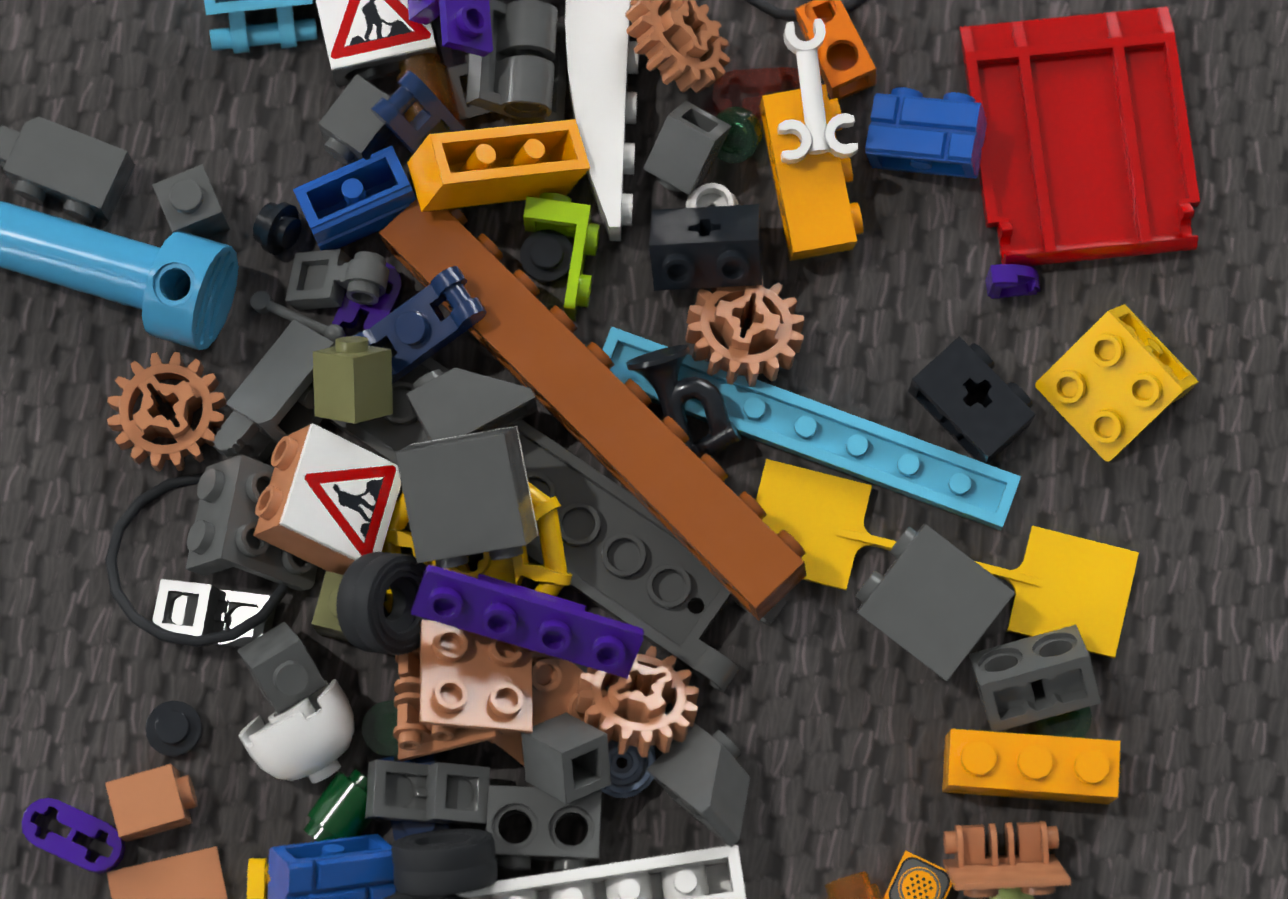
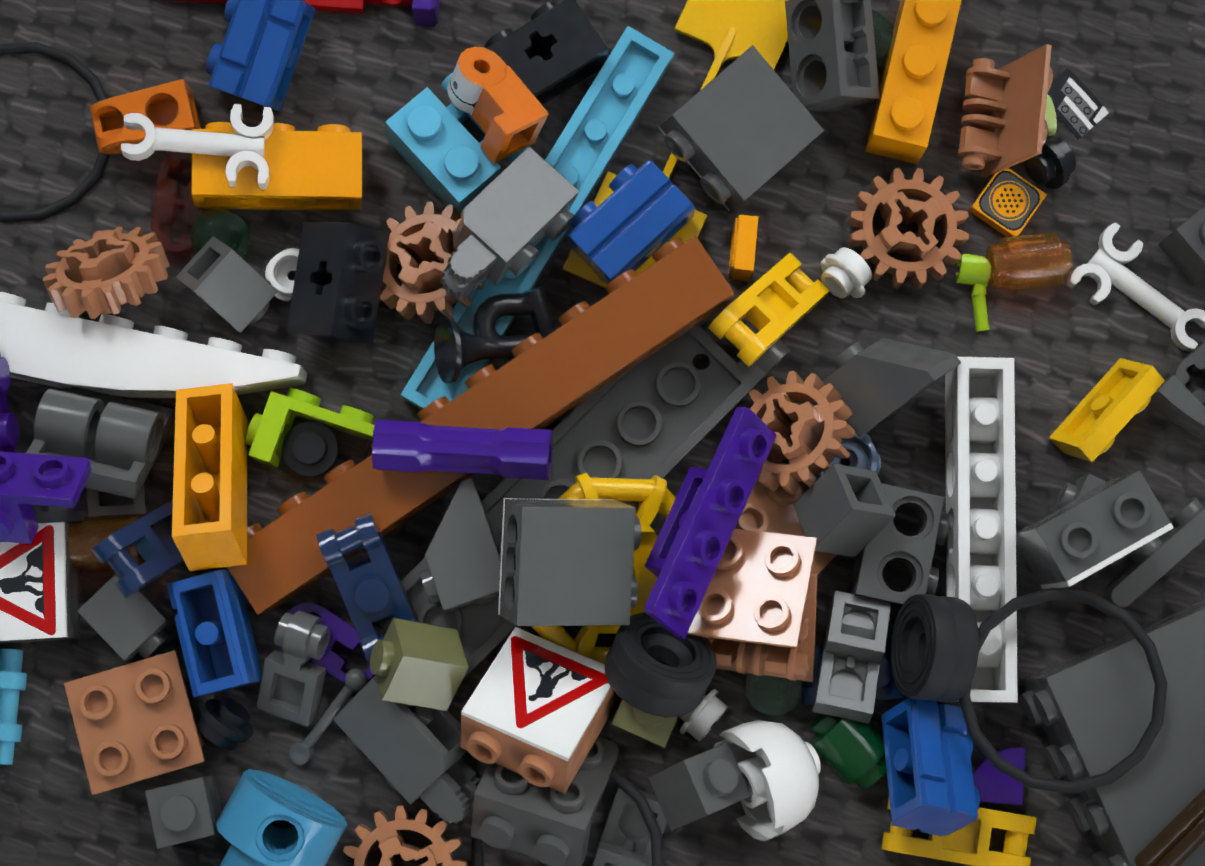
camera: 85 degrees left, 5 degrees up
(264, 146) = (134, 722): none -> nougat hinge
(354, 663) = (703, 716): none -> white plate
(561, 416) = (424, 447): none -> dark purple axle
(758, 658) = (771, 307): none -> yellow plate
(789, 388) = (507, 223): none -> hinge
(810, 732) = (845, 273): none -> white plate
(817, 627) = (743, 248): none -> light orange tile
(818, 509) = (630, 222): none -> blue brick
(840, 862) = (976, 271): none -> lime hand
(856, 323) = (442, 148): none -> medium azure brick
(887, 807) = (897, 208): none -> nougat gear
(909, 359) = (496, 102): none -> orange leg

